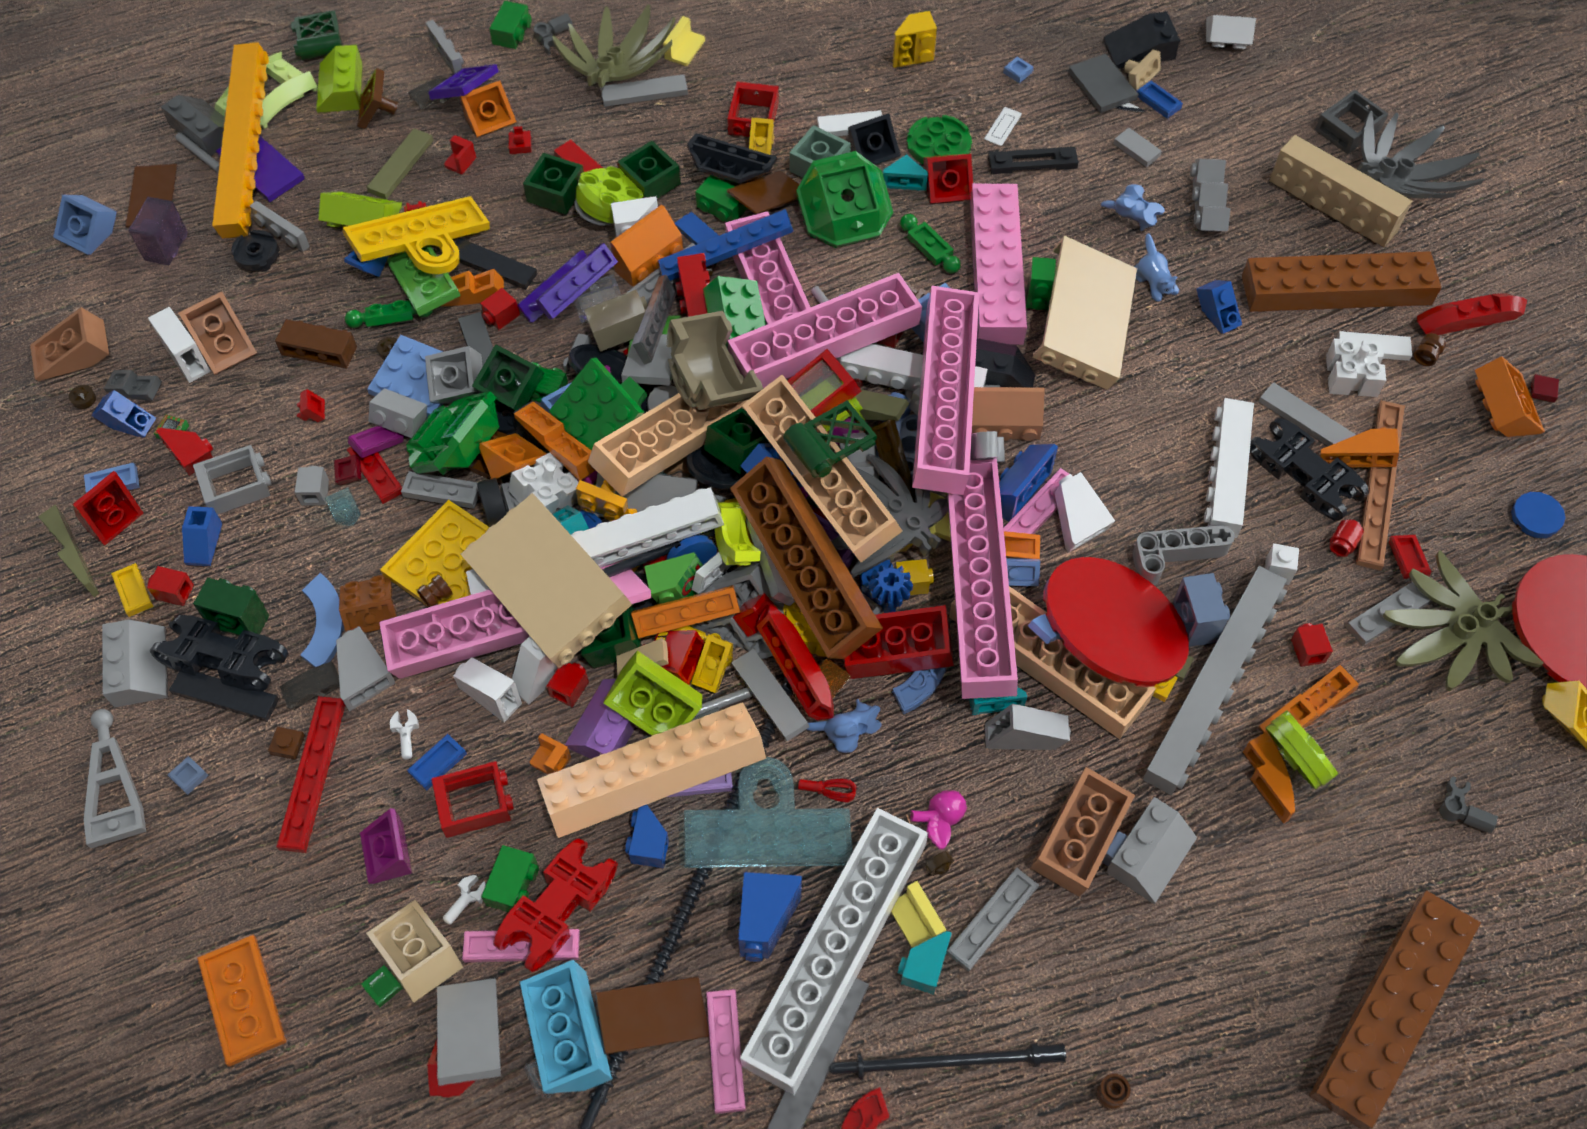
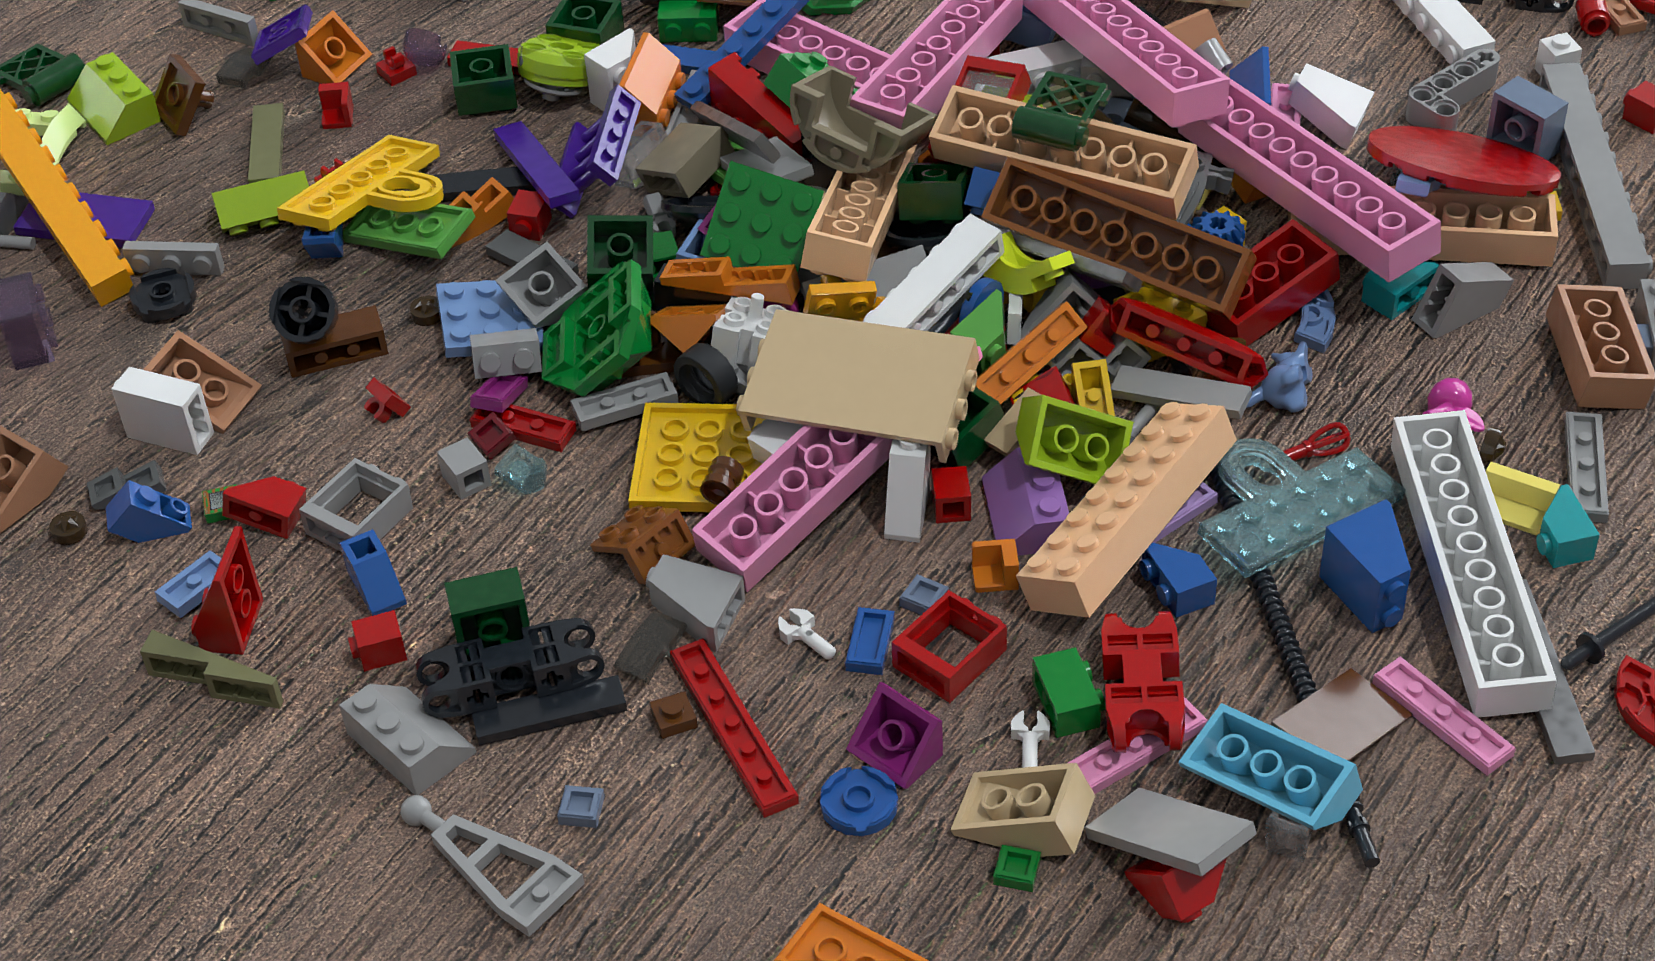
camera: 30 degrees left, 15 degrees down
(132, 590) = (326, 673): yellow tile -> none
(292, 320) = (291, 306): none -> black cylinder
(328, 621) = (608, 577): medium blue tile -> none
(336, 875) = (859, 801): none -> blue tile
(382, 314) = (388, 281): green plate -> none
(488, 688) = (867, 537): white slope -> none
(494, 748) = (921, 594): none -> sand blue tile
(529, 272) = (536, 164): none -> dark purple tile
(542, 135) = (423, 47): none -> clear purple hair

